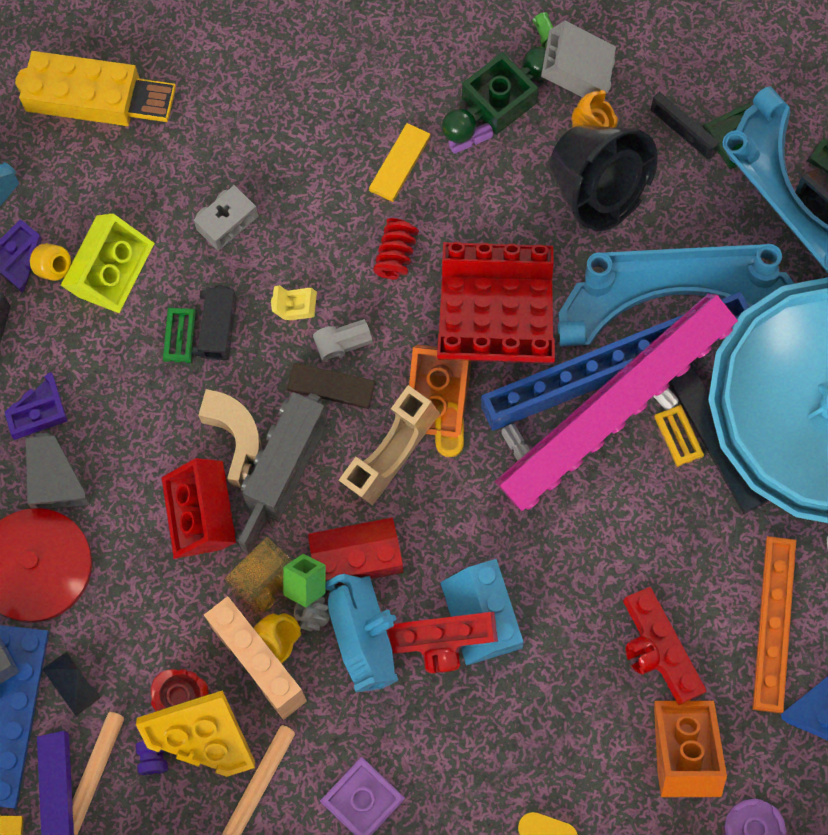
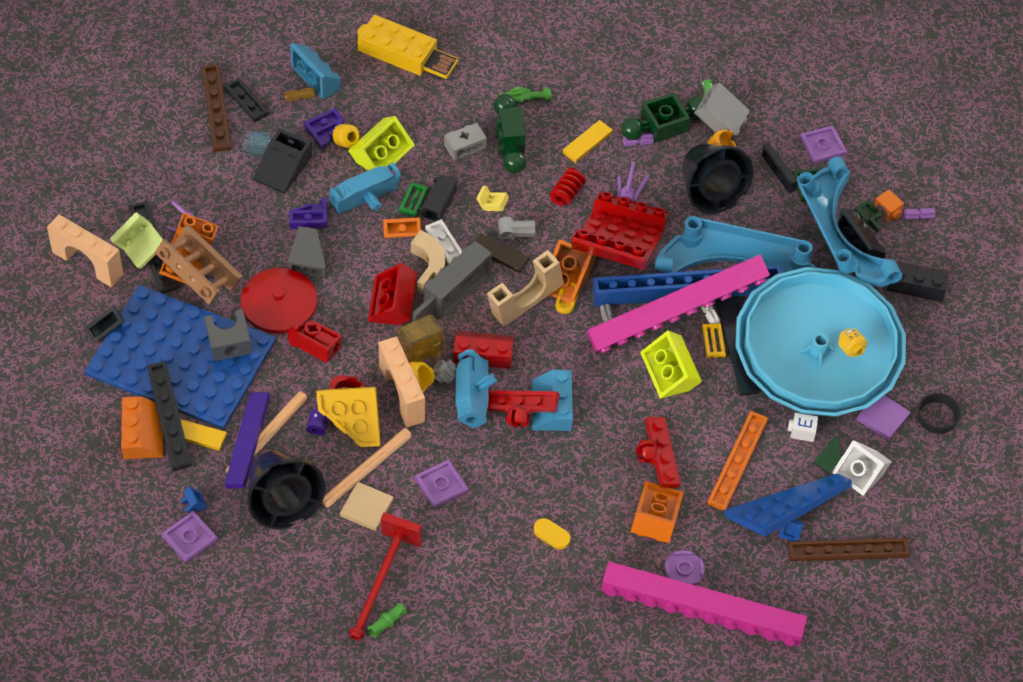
camera: 10 degrees right, 15 degrees down
(71, 683) = (281, 370): black slope -> none
(104, 342) = (365, 188): none -> dark azure piece
(118, 622) = (315, 339): none -> red piece
(176, 386) = (401, 227): none -> orange slope
(248, 392) = (445, 238): none -> white tile
(282, 115) = (525, 94): none -> bright green piece
(288, 188) = (510, 133): none -> dark green brick
(304, 580) = (446, 345): bright green brick -> none
(483, 231) = (628, 191): none -> medium lavender plant
(632, 499) = (670, 365): none -> neon yellow slope
(732, 67) = (823, 144): none -> medium lavender tile

